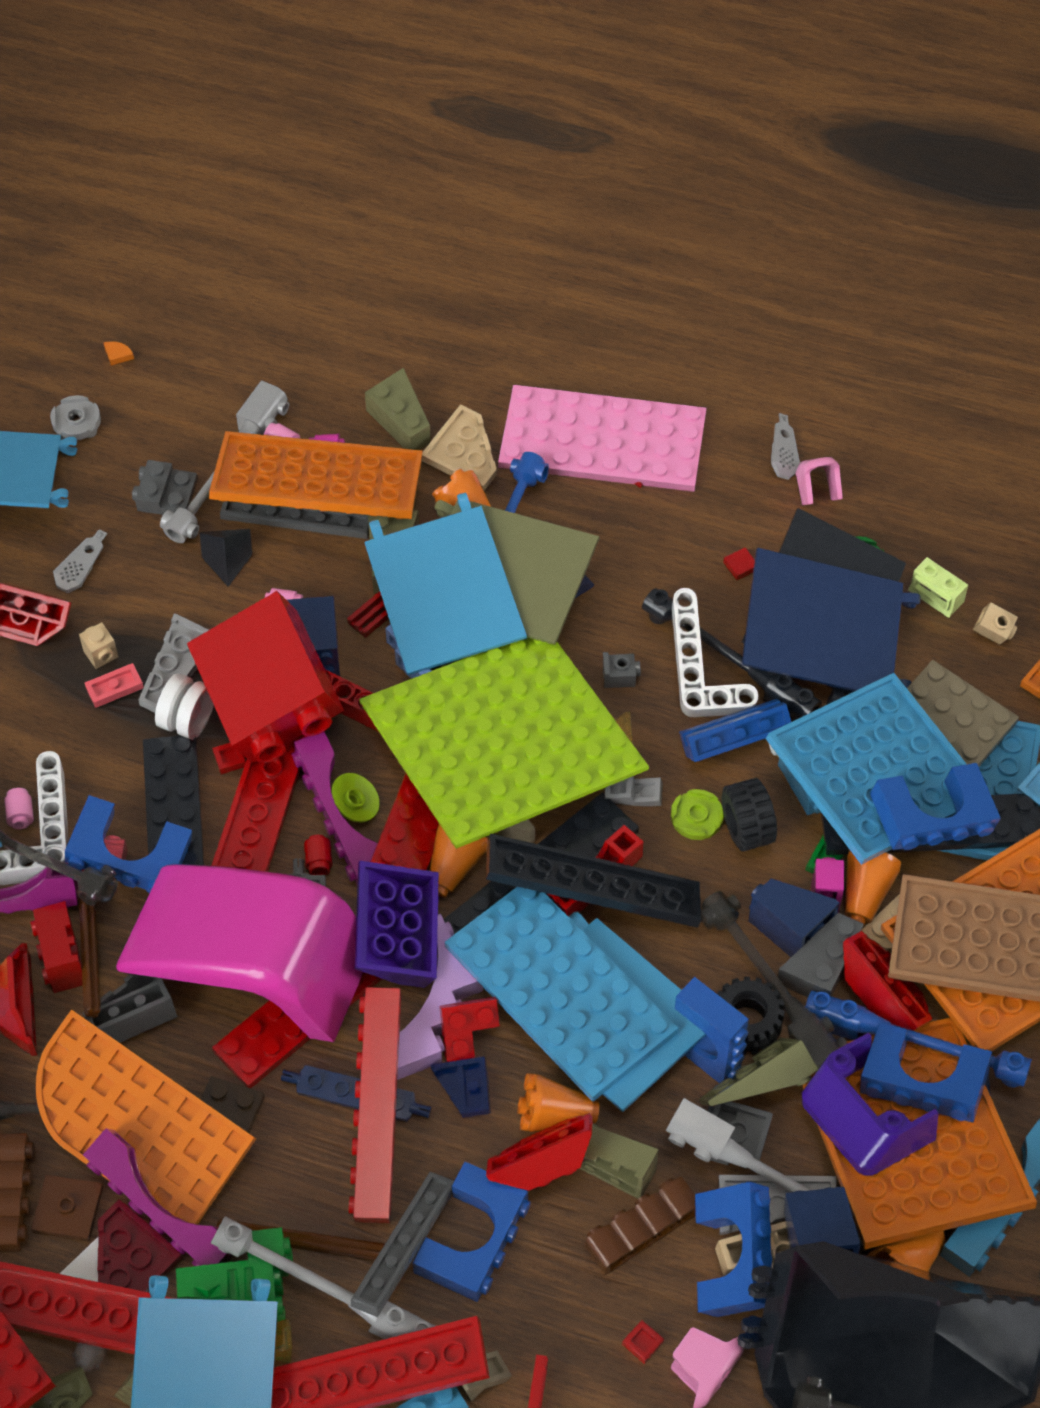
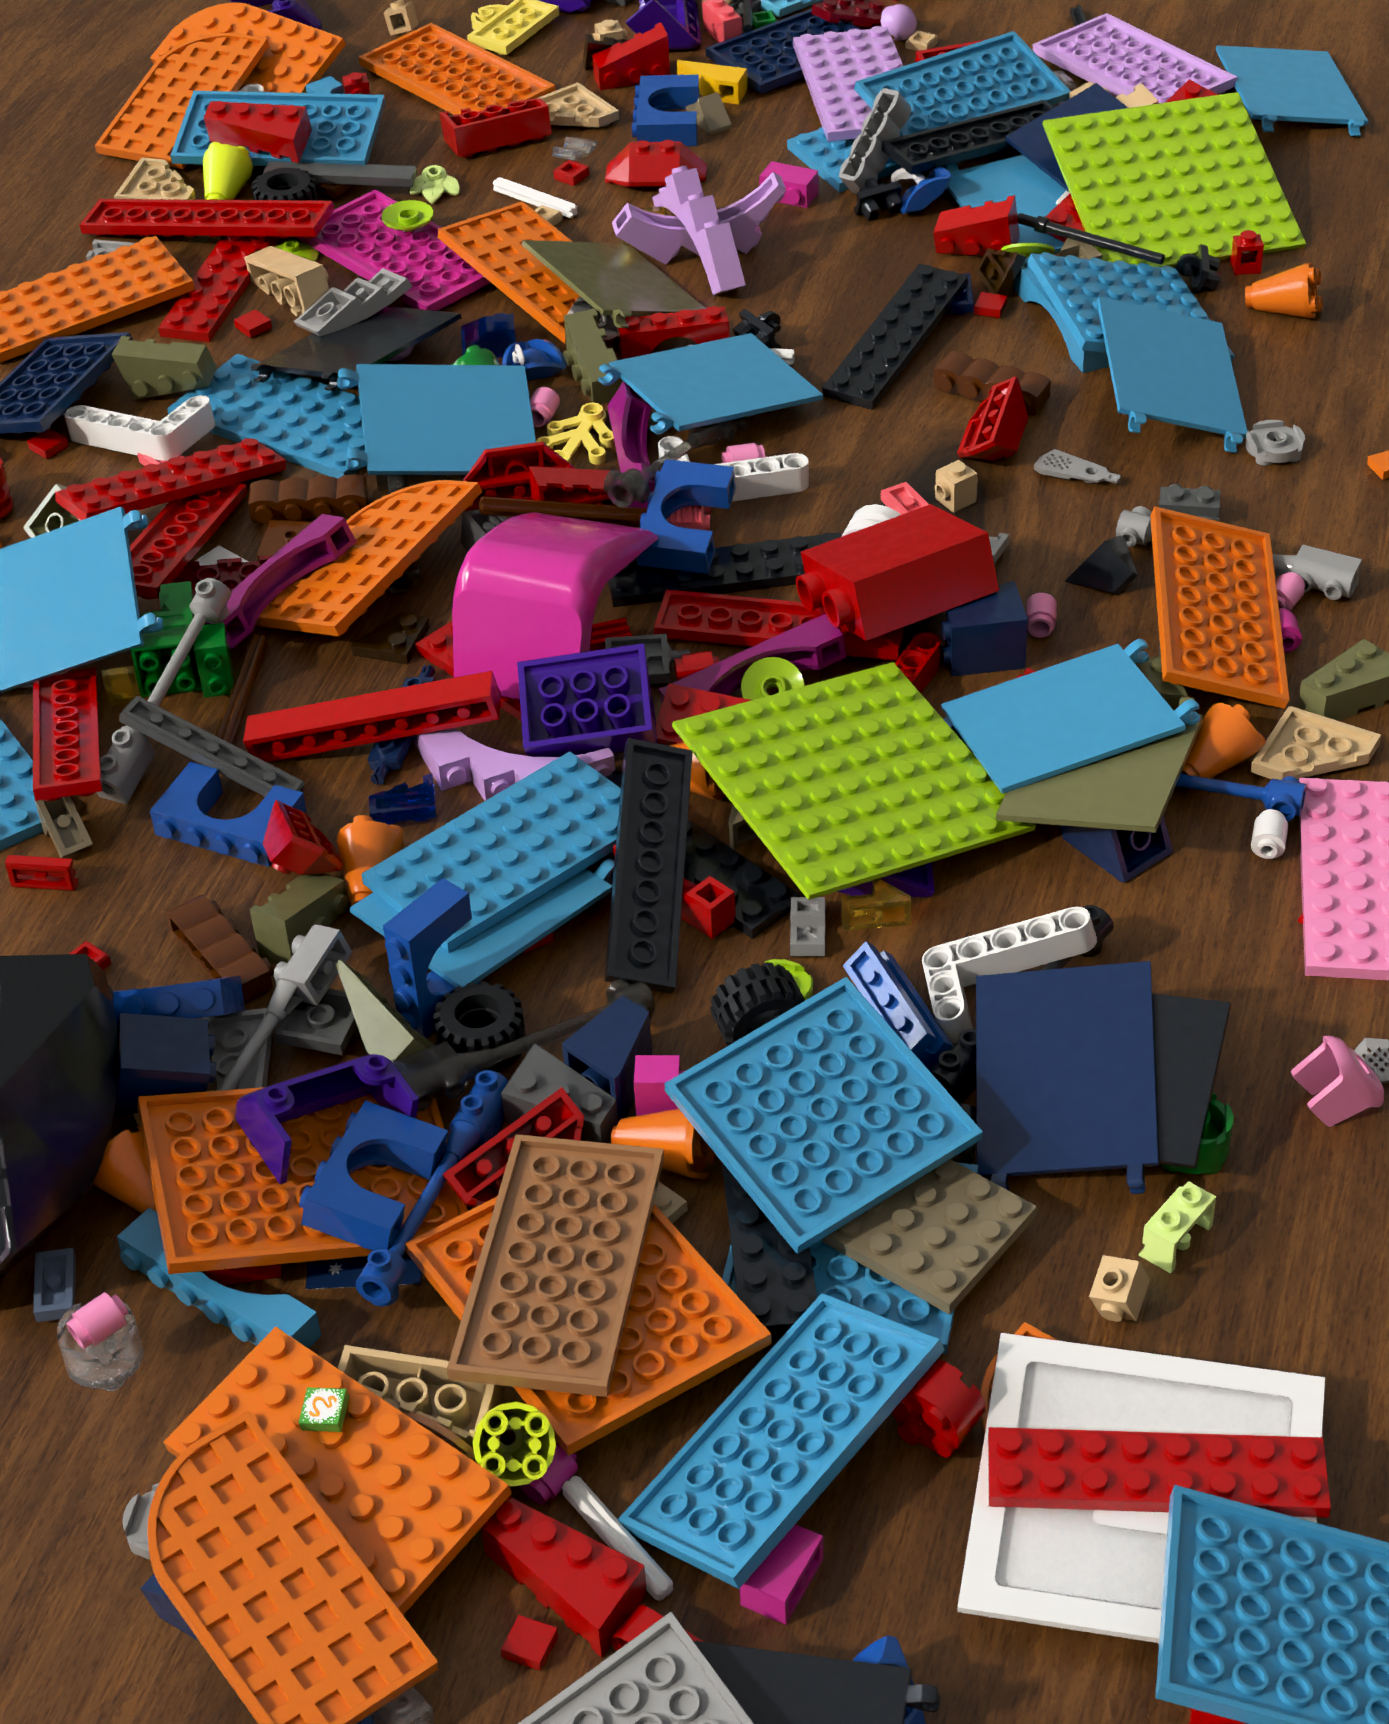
camera: 90 degrees right, 15 degrees down
(460, 1020) = (469, 781): red plate -> none
(561, 487) = (1269, 834): none -> white brick
(620, 670) = (985, 900): dark grey brick -> none
(910, 827) = (746, 1204): blue arch -> none

